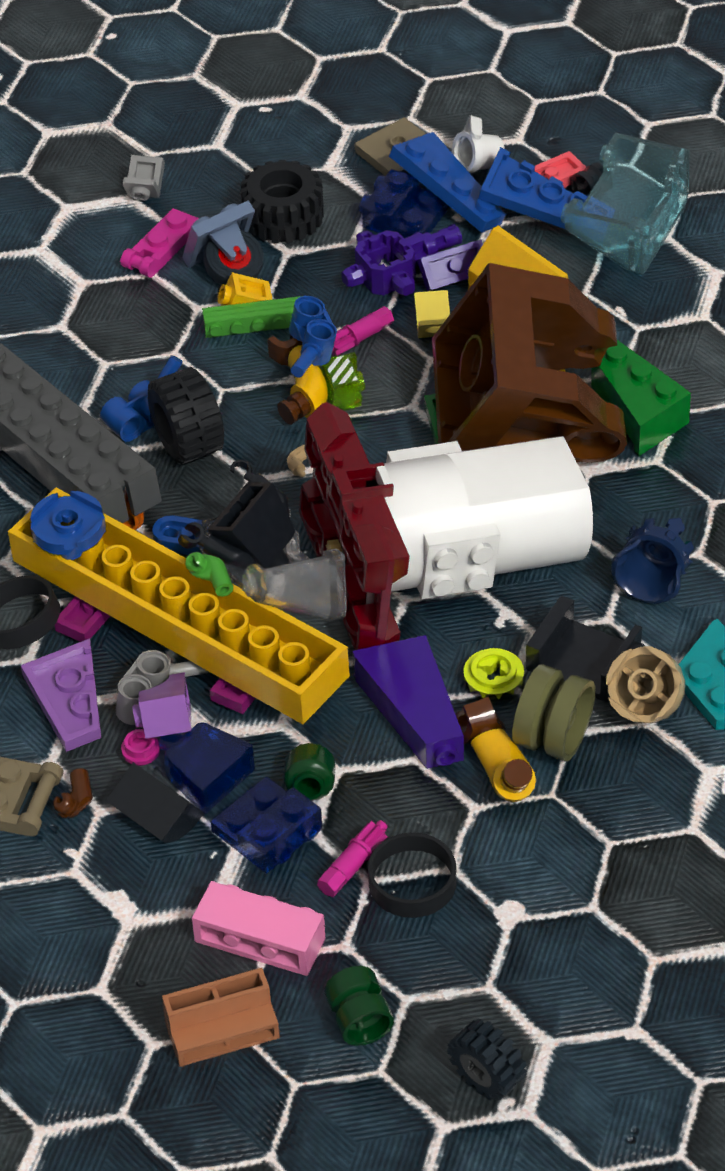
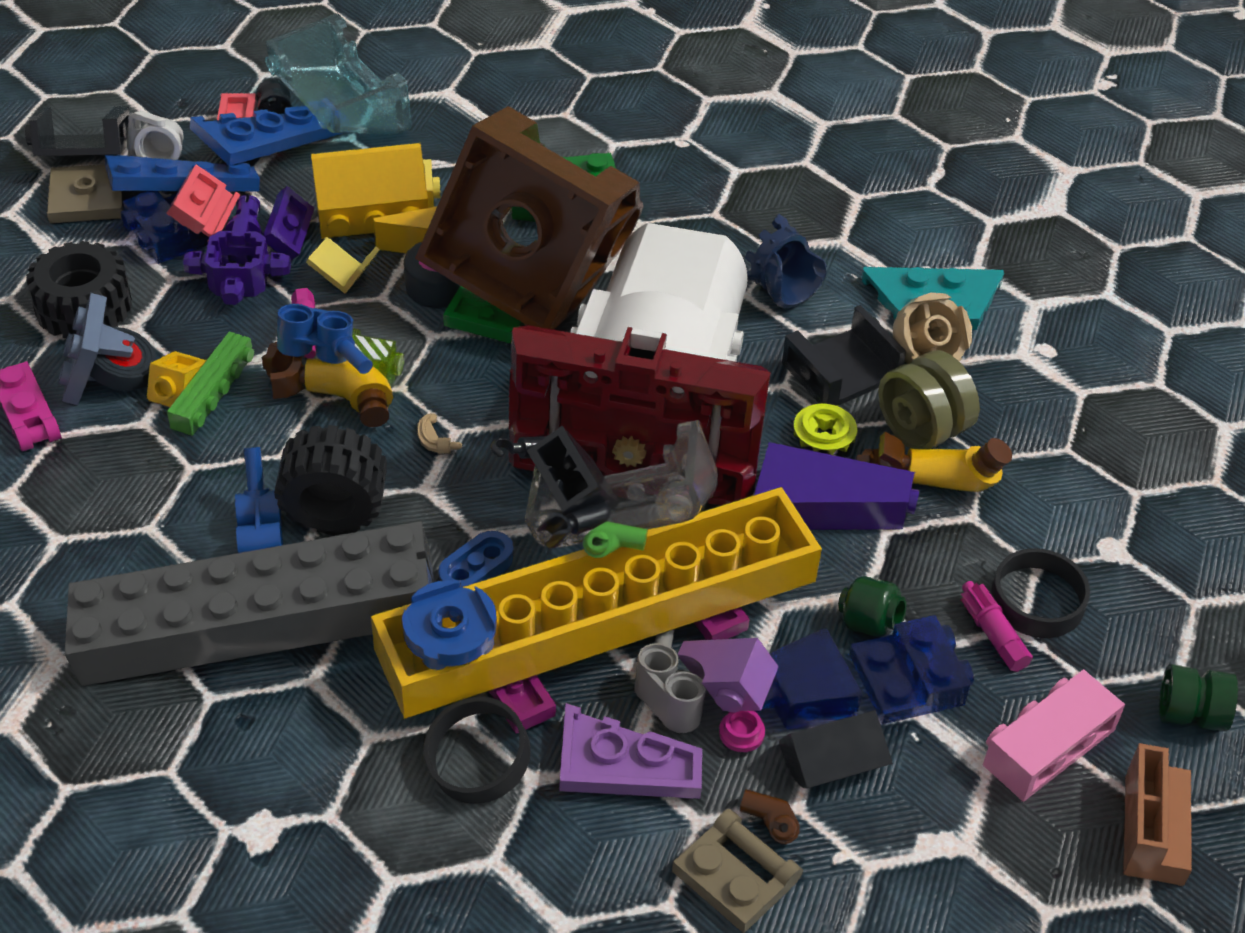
camera: 65 degrees left, 0 degrees up
(420, 207) = (202, 203): none -> coral plate
(427, 99) = (44, 143): none -> black panel

